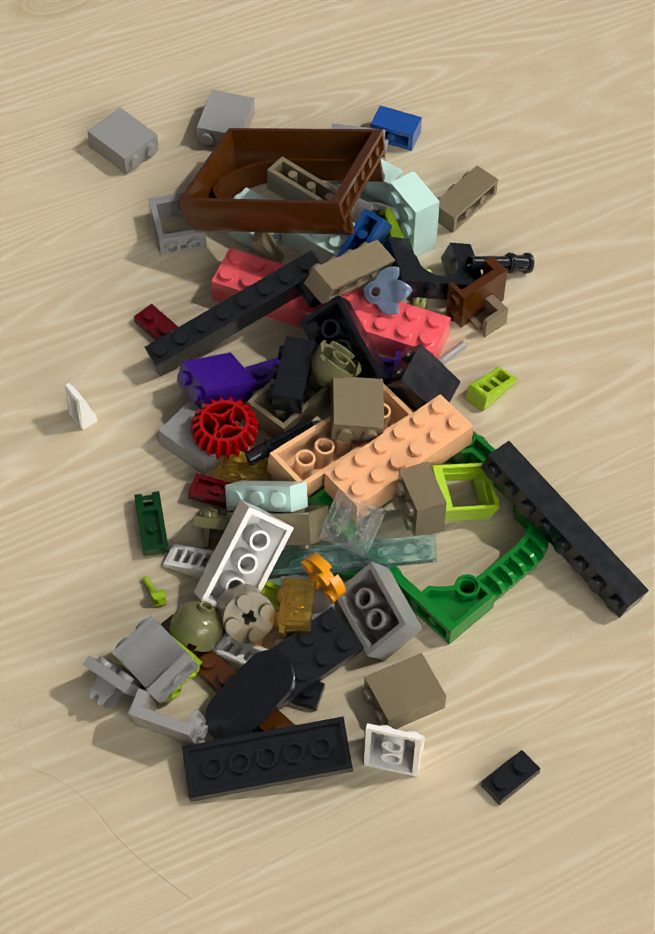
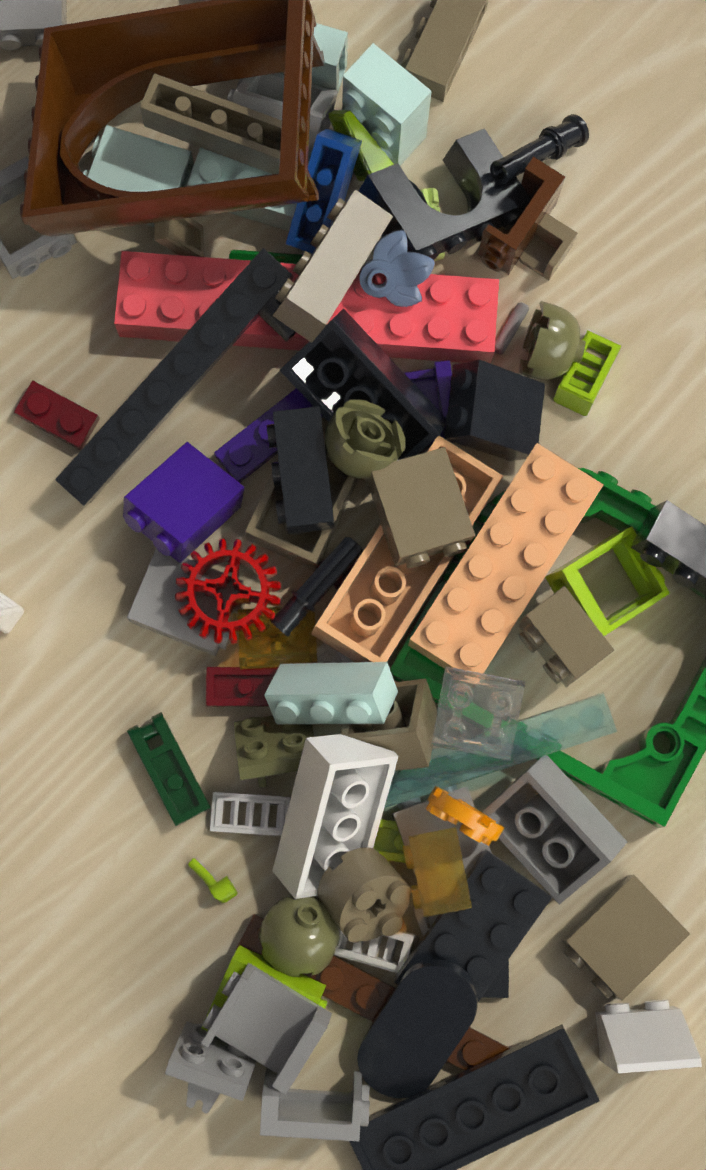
camera: 20 degrees left, 25 degrees up
(472, 359) = (551, 343): none -> olive cylinder

